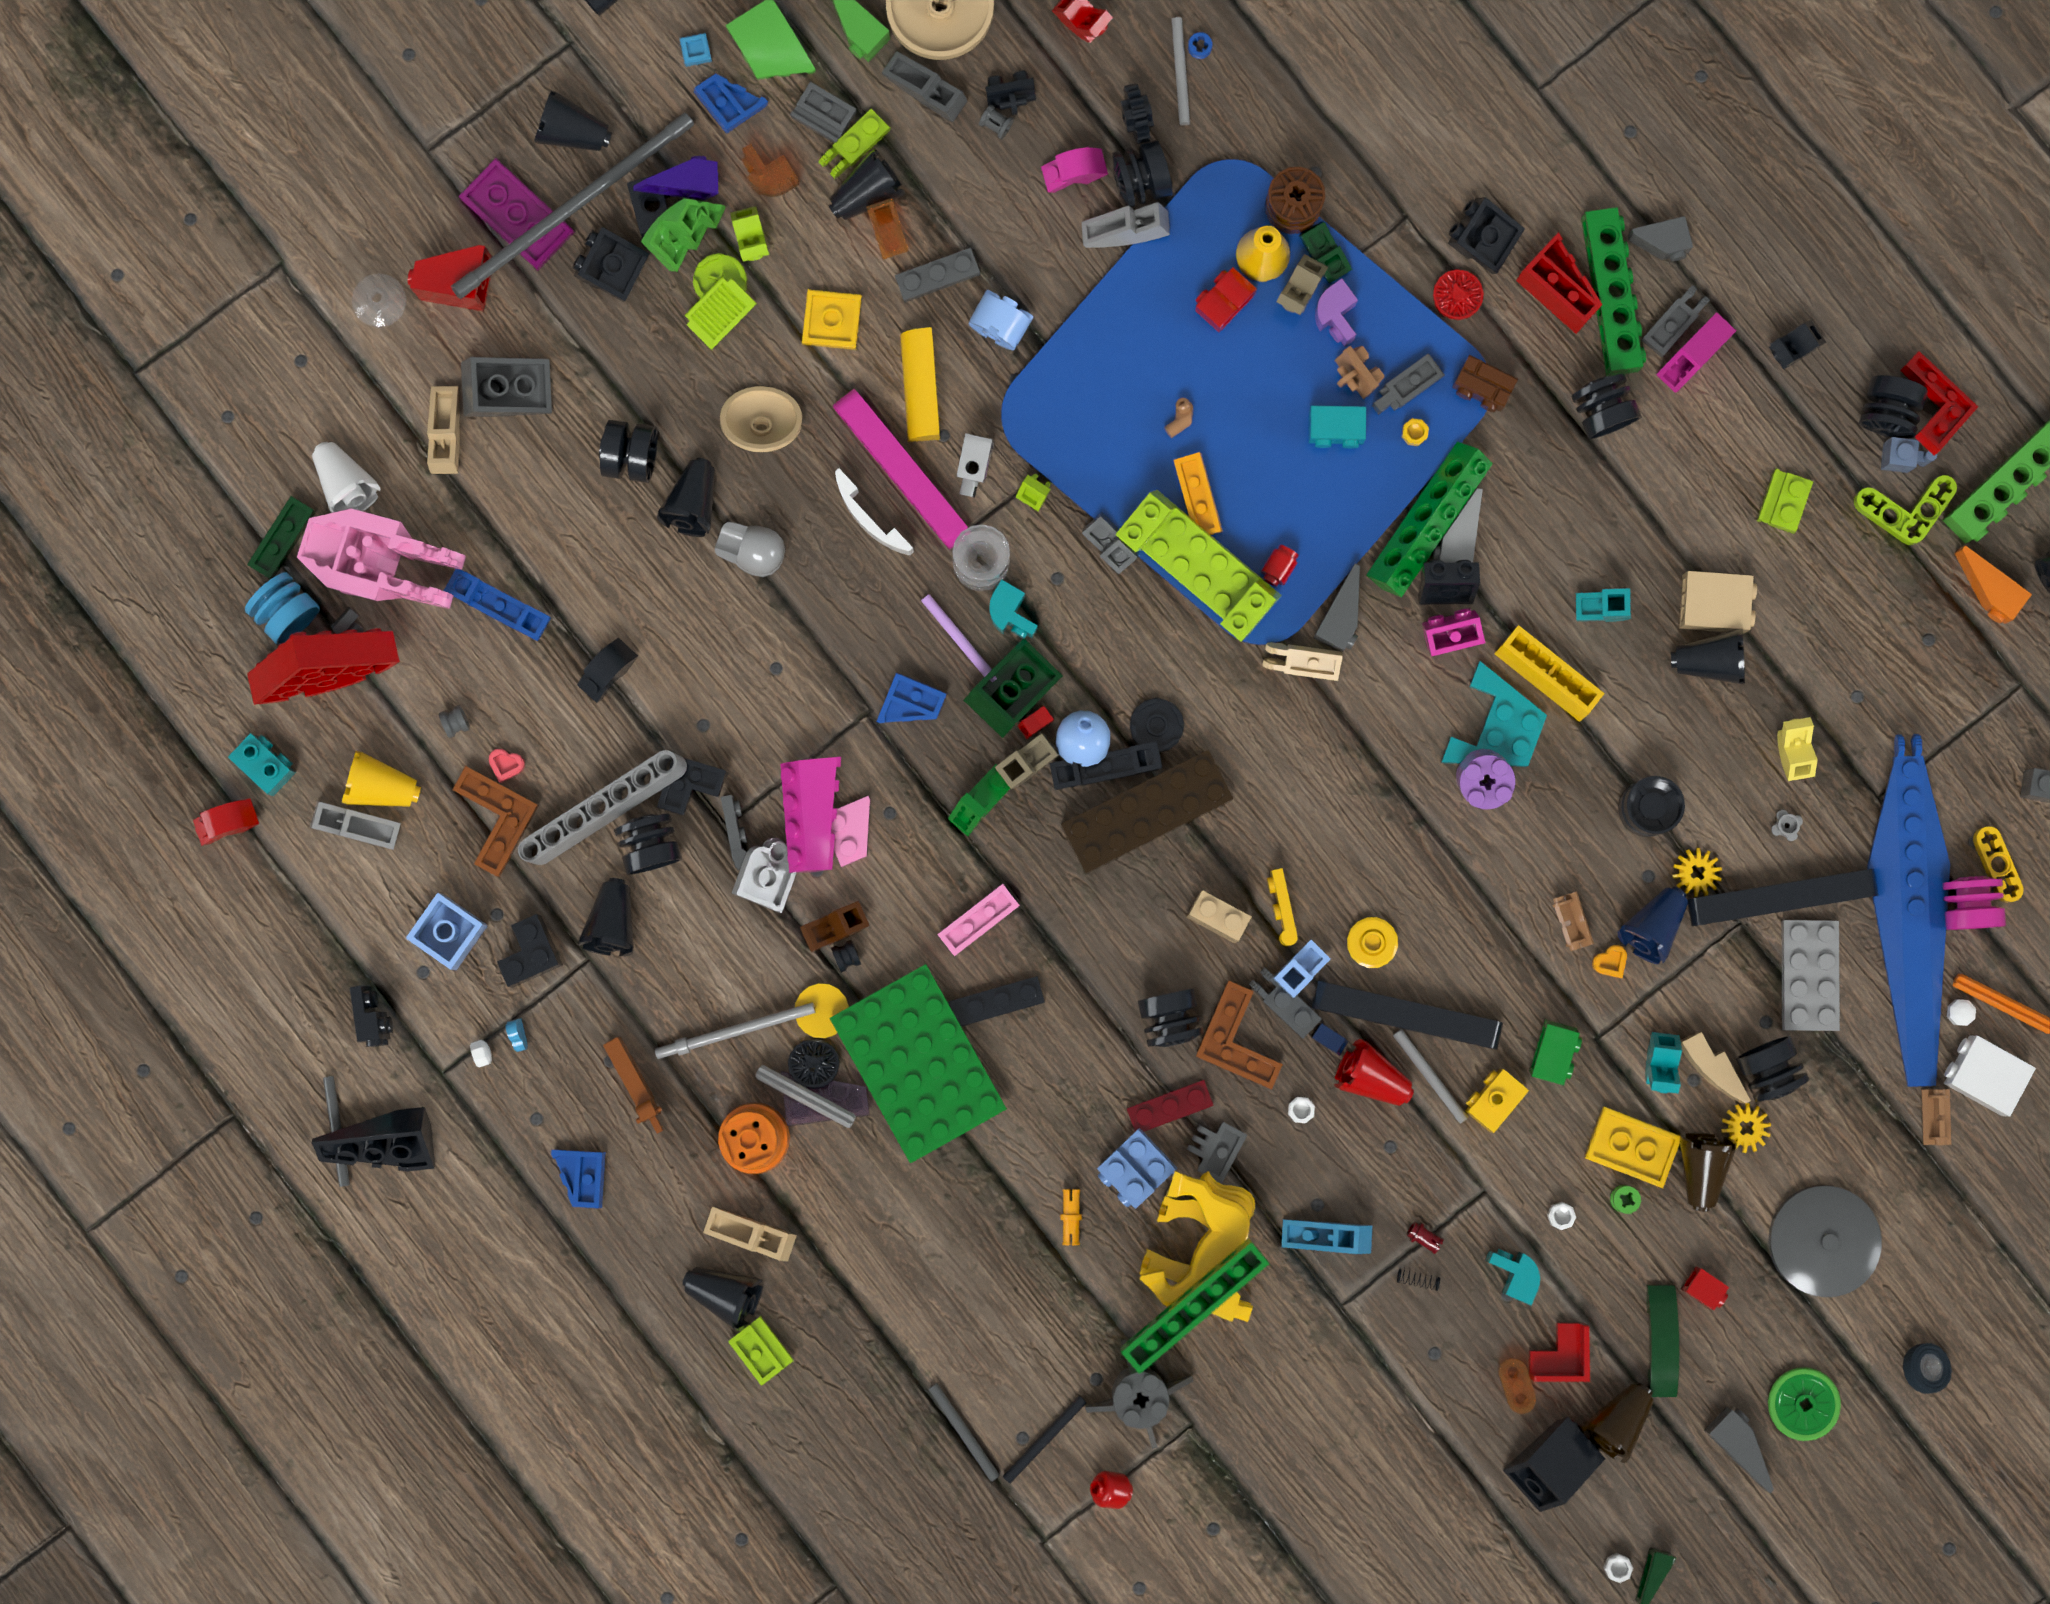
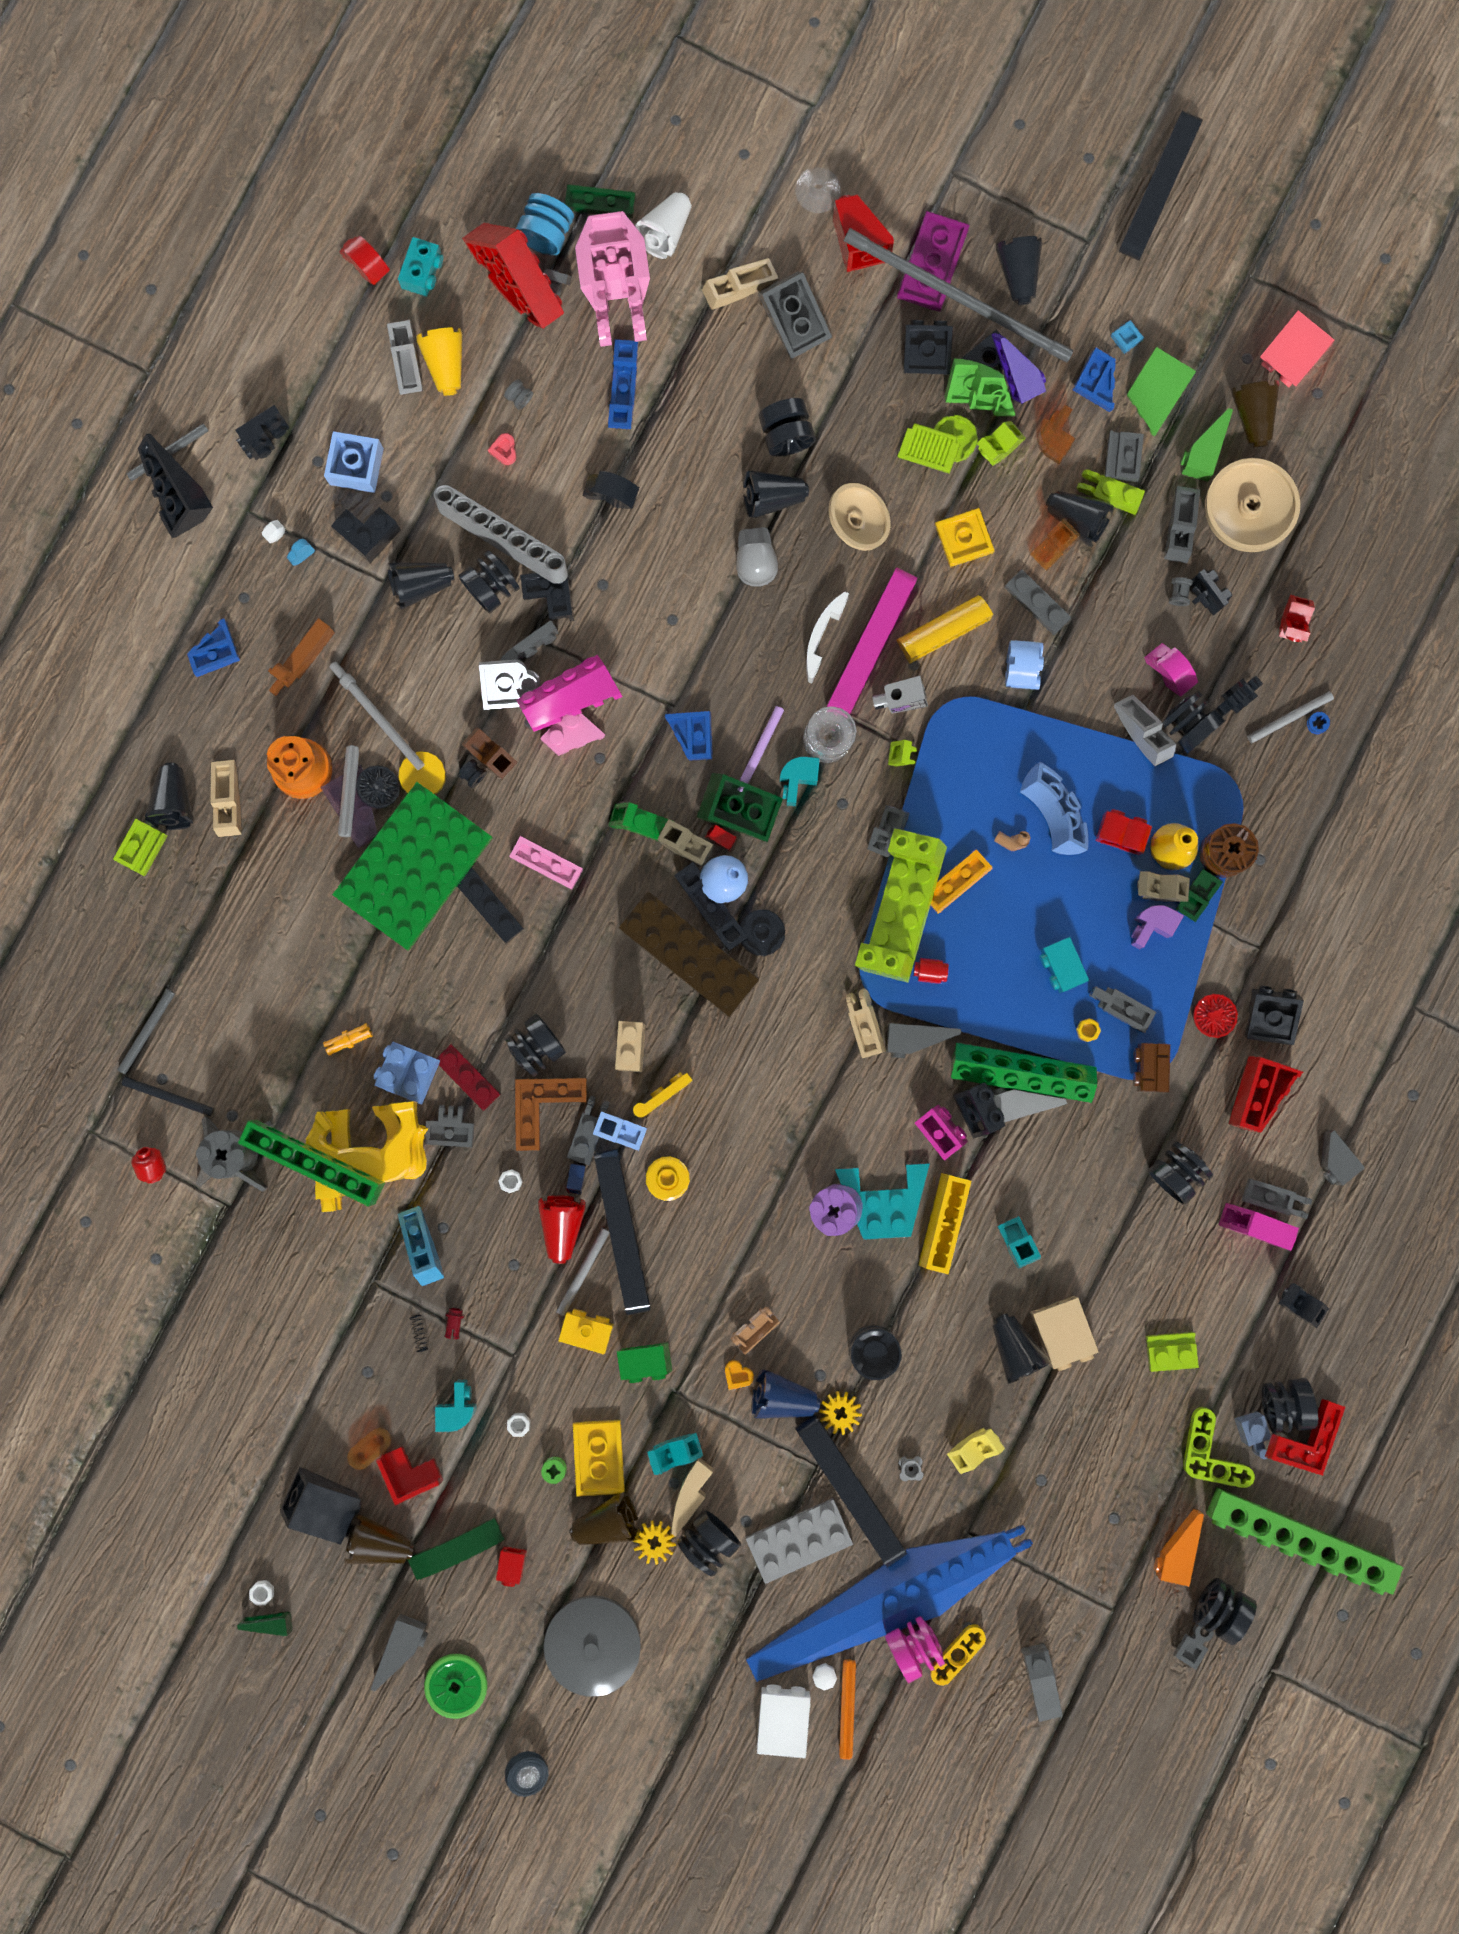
camera: 70 degrees right, 0 degrees up
(514, 817) = (466, 474): dark orange plate -> none
(1170, 354) = (1059, 809): none -> medium blue brick
(1355, 372) = (1112, 961): medium nougat hips -> none
(1611, 223) = (1330, 1110): green brick -> none
(1936, 1116) = (731, 1693): medium nougat hinge -> none

